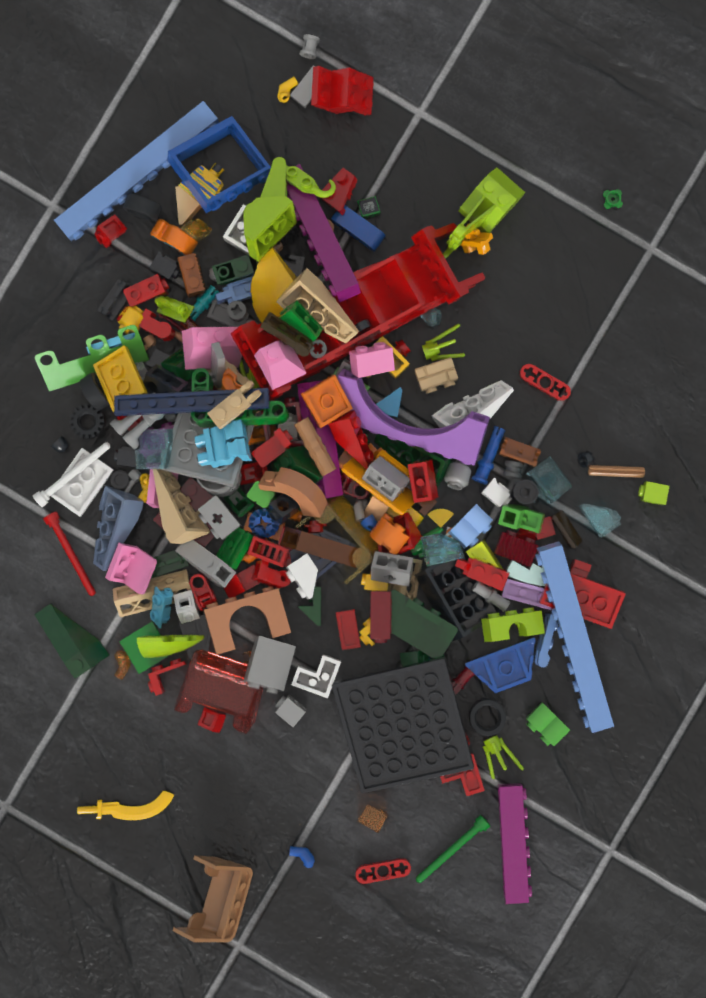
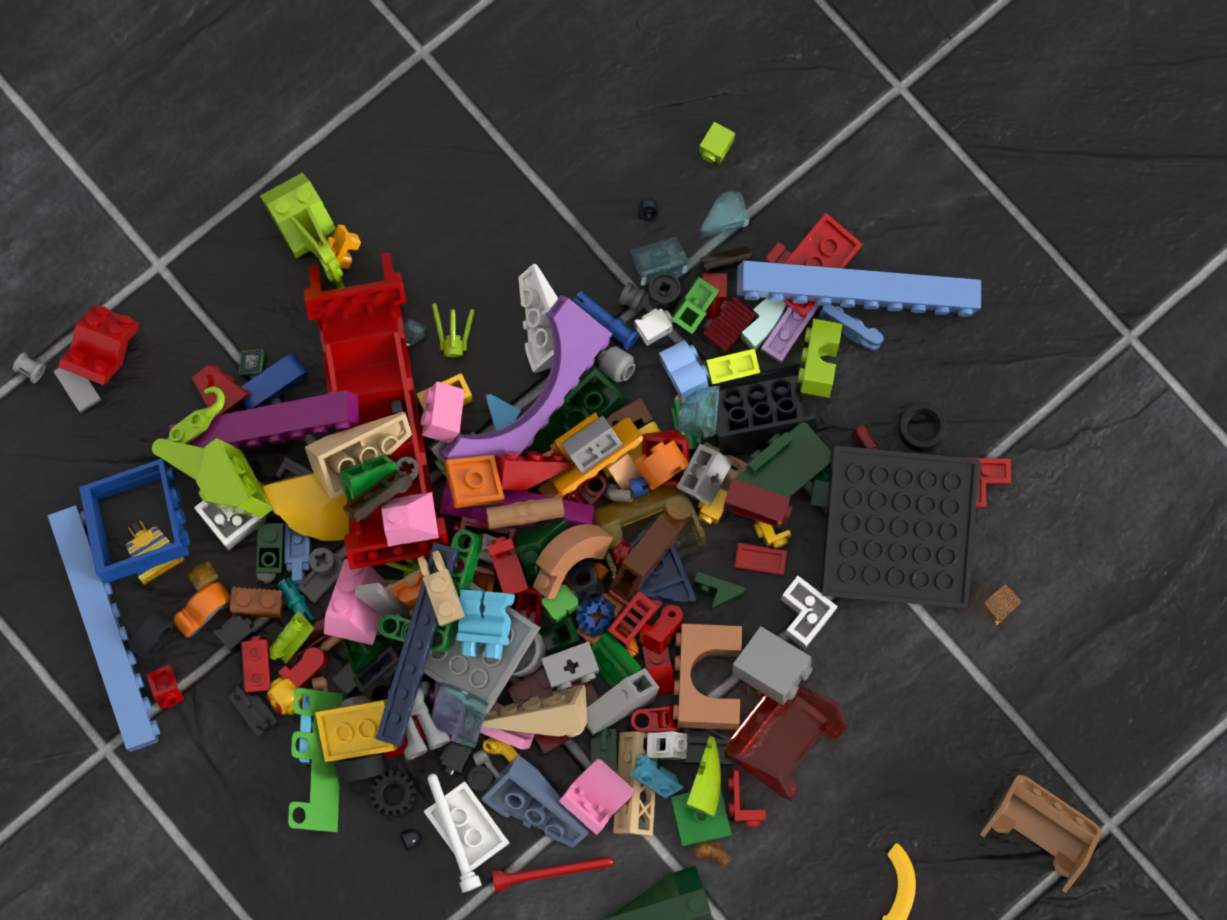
camera: 75 degrees left, 10 degrees down
(186, 206) = (168, 581): tan slope -> none
(212, 720) = (818, 764): red slope -> none
(285, 89) = (69, 415): yellow arm -> none
(290, 710) = (837, 658): light grey brick -> none
(304, 574) = (678, 582): white slope -> none
(305, 855) = (1022, 703): blue arm -> none
(398, 873) = (1066, 596): red beam -> none
(402, 348) = (437, 377): red plate -> none
(423, 481) = (610, 402): red brick -> none
(436, 375) = (485, 349): tan brick -> none
(440, 516) = (659, 402): yellow tile -> none
(480, 825) = (1051, 479): green piece -> none
(483, 572) = (745, 369): red hinge -> none
(491, 596) = (776, 372): light grey pin -> none
(494, 745) = (959, 429): lime plant -> none
(506, 666) = (867, 385): blue wing -> none
(513, 843) = (1085, 446): magenta brick -> none
(519, 452) = (613, 283): dark orange hinge -> none
(547, 724) = (954, 358): bright green brick -> none
(554, 394) = (522, 233): red beam -> none
(616, 194) = (353, 71): green plate -> none
(616, 471) = (675, 179): medium nougat axle -> none

